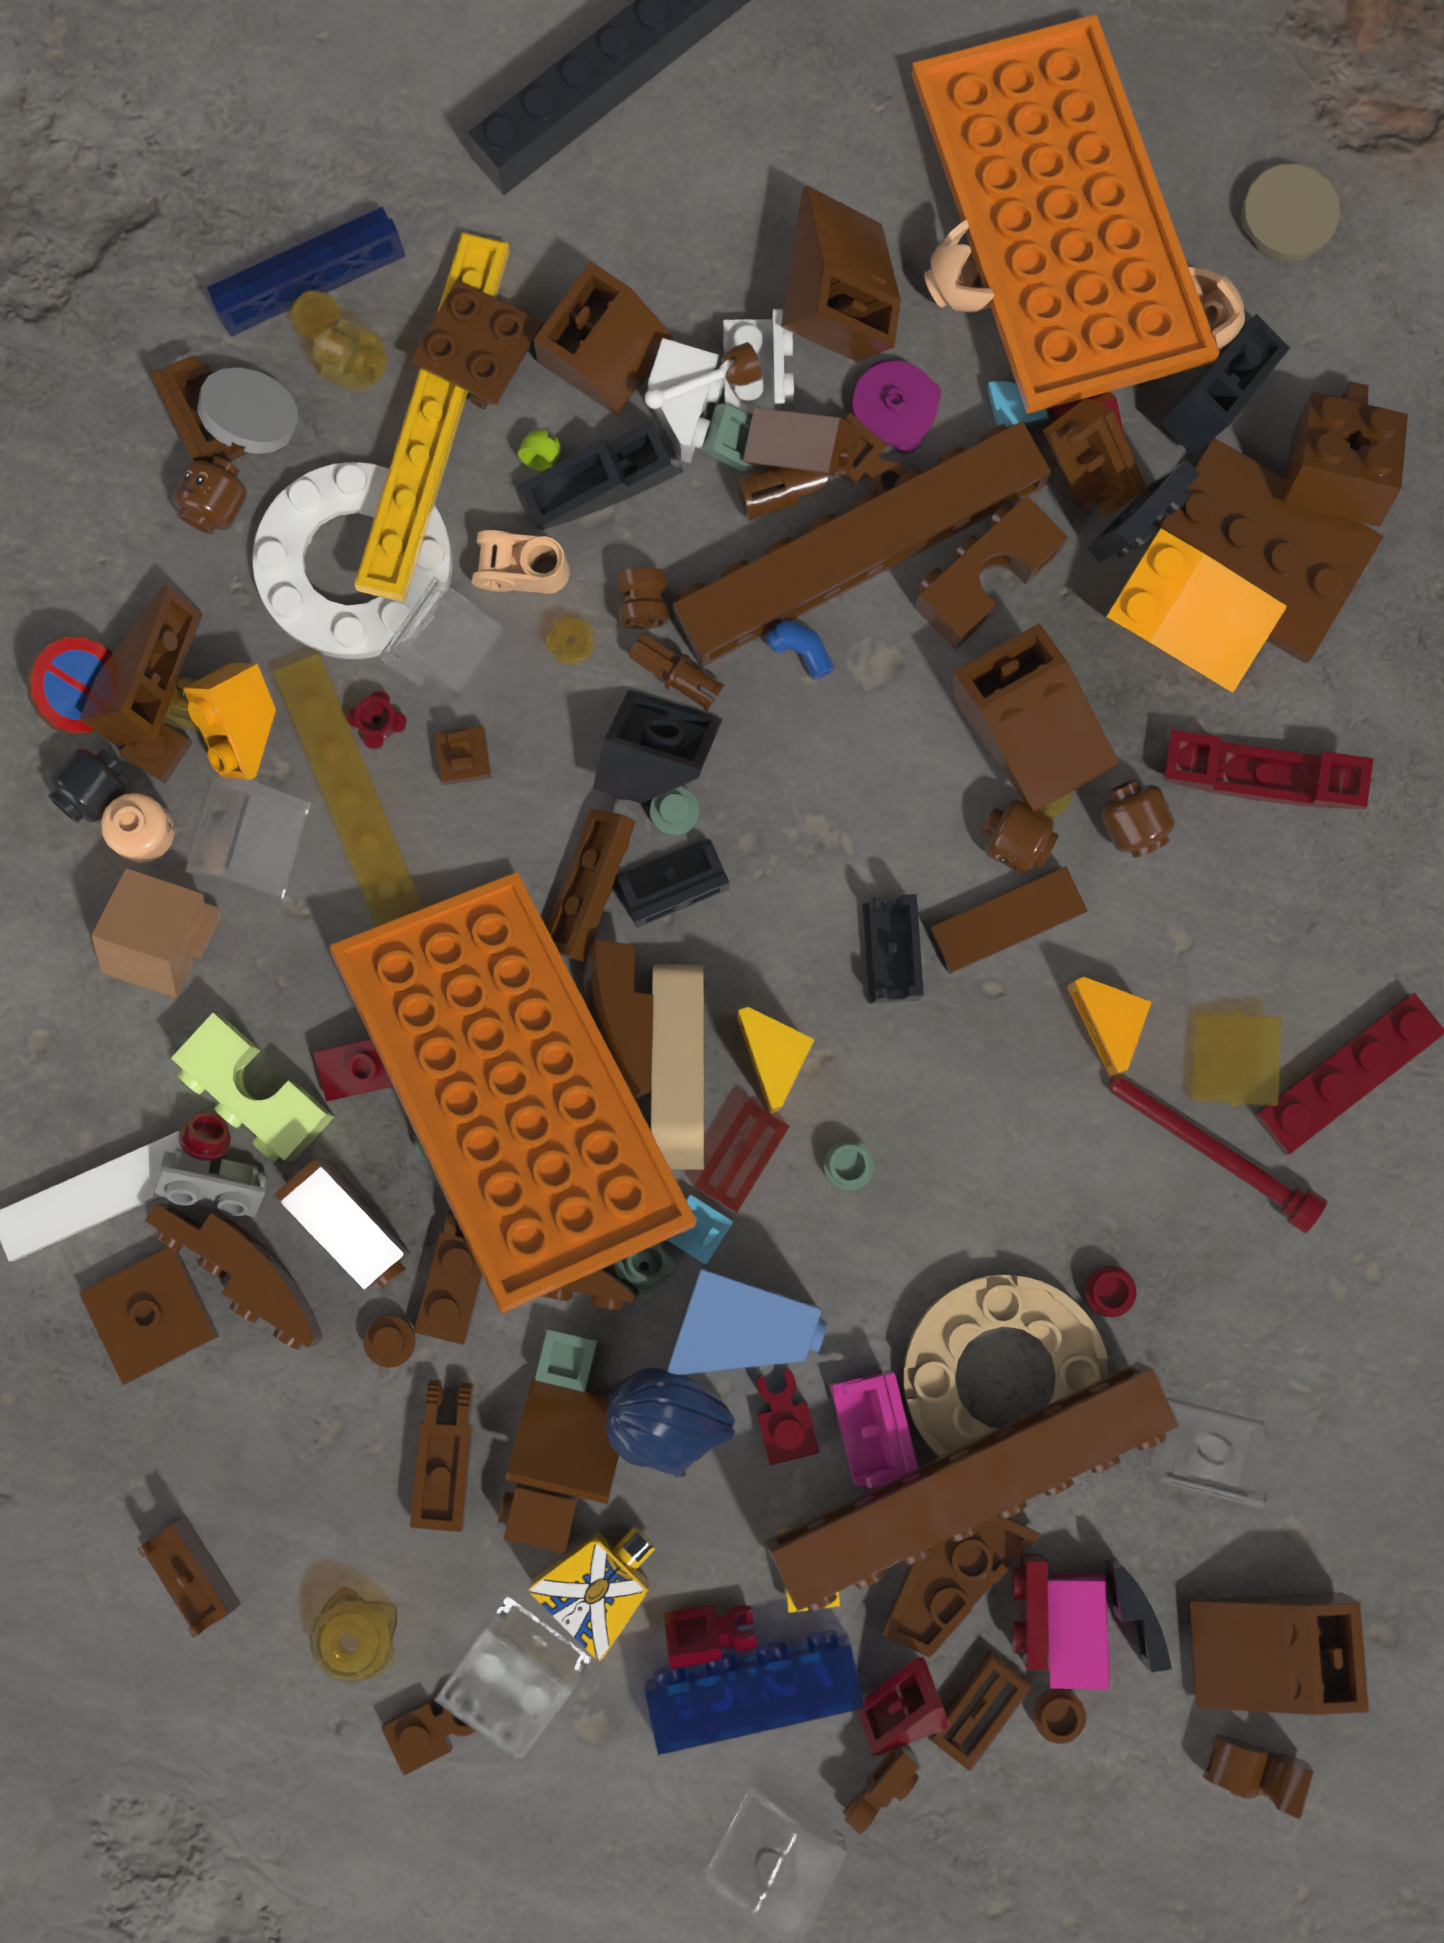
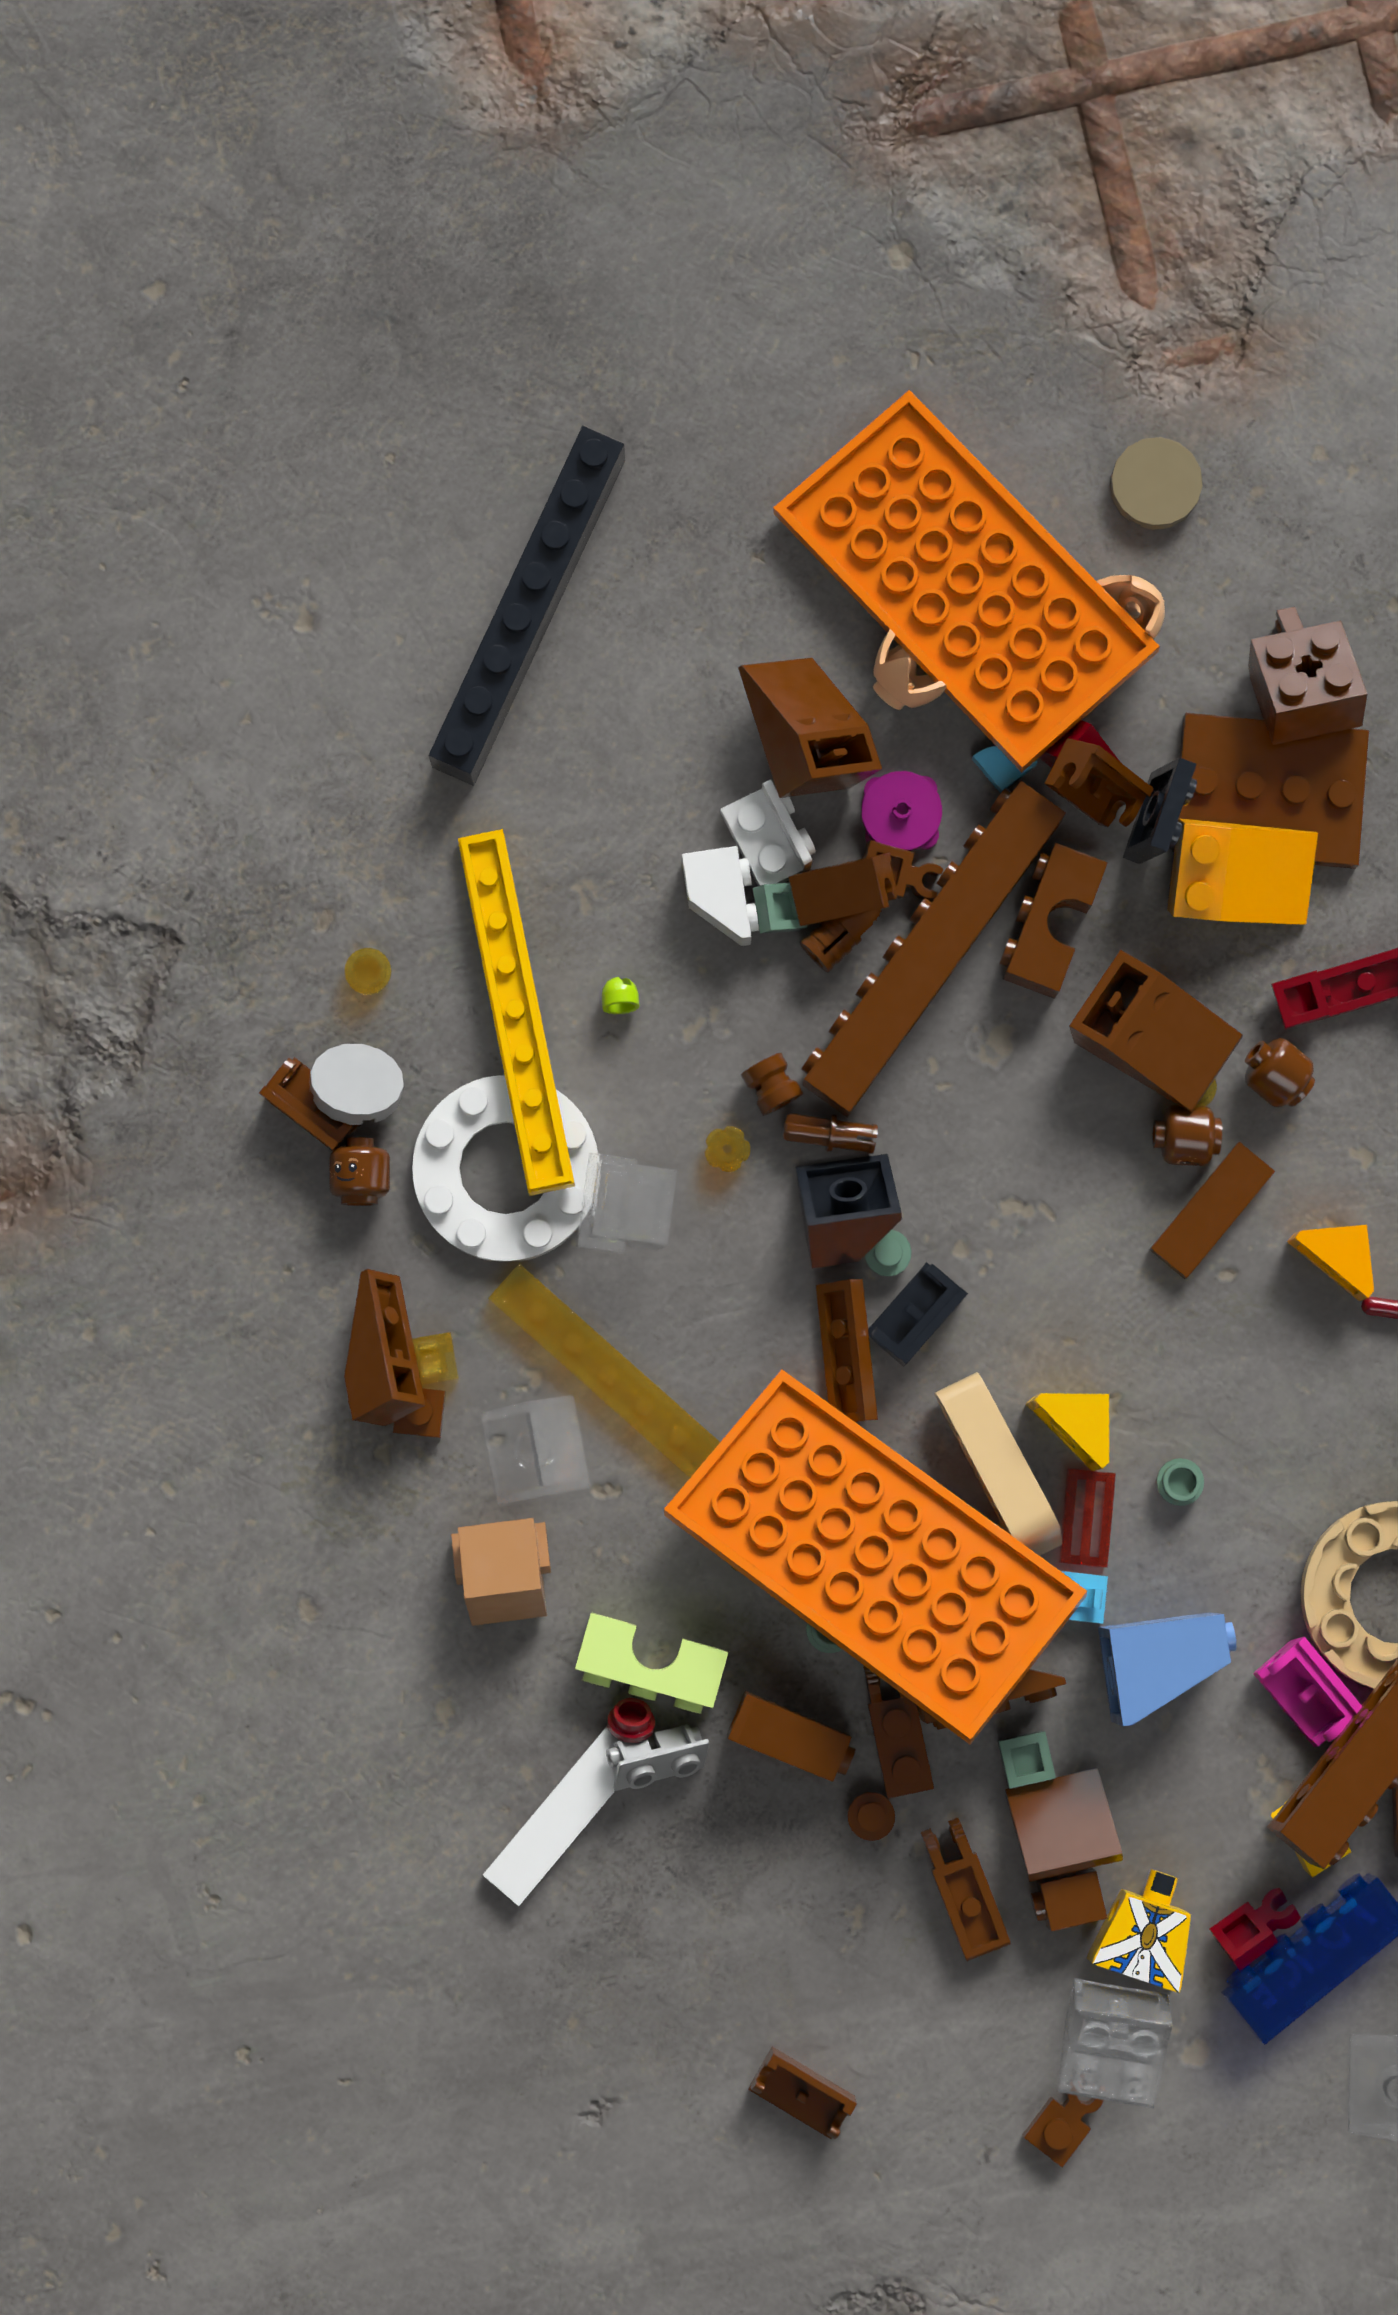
camera: 25 degrees left, 0 degrees up
(62, 680) = (320, 1393): piece -> none
(86, 785) = (381, 1472): black head -> none
(137, 827) = (444, 1487): light nougat head -> none
(148, 1314) = (658, 1893): reddish brown plate -> none
(233, 716) = (479, 1355): light orange slope -> none
(258, 1280) = (739, 1820): reddish brown slope -> none
(311, 266) = (339, 935): clear blue fence -> none
(349, 355) = (417, 994): clear yellow head -> none
(351, 1070) = (728, 1603): dark red plate -> none
(369, 1621) = (951, 2056): clear yellow piece -> none
(376, 705) = (583, 1299): dark red plate -> none
(463, 755) = (684, 1291): reddish brown tile -> none
(476, 343) = (523, 932): reddish brown hinge -> none
(509, 562) = (649, 1105): light nougat piece -> none
(601, 339) = (629, 878): reddish brown slope -> none
(601, 476) = (683, 995): black slope -> none
(621, 1013) = (931, 1447): reddish brown slope -> none
(645, 1281) = (1061, 1662): sand green plate -> none
(665, 1421) = (1137, 1768): dark blue hair -> none
(738, 367) = (758, 849): hinge -> none
(787, 1426) = (1234, 1724): dark red plate -> none
(804, 640) = (924, 1054): blue arm -> none
(893, 949) = (1129, 1282): black hinge -> none
(1224, 386) = (1174, 675): black slope -> none

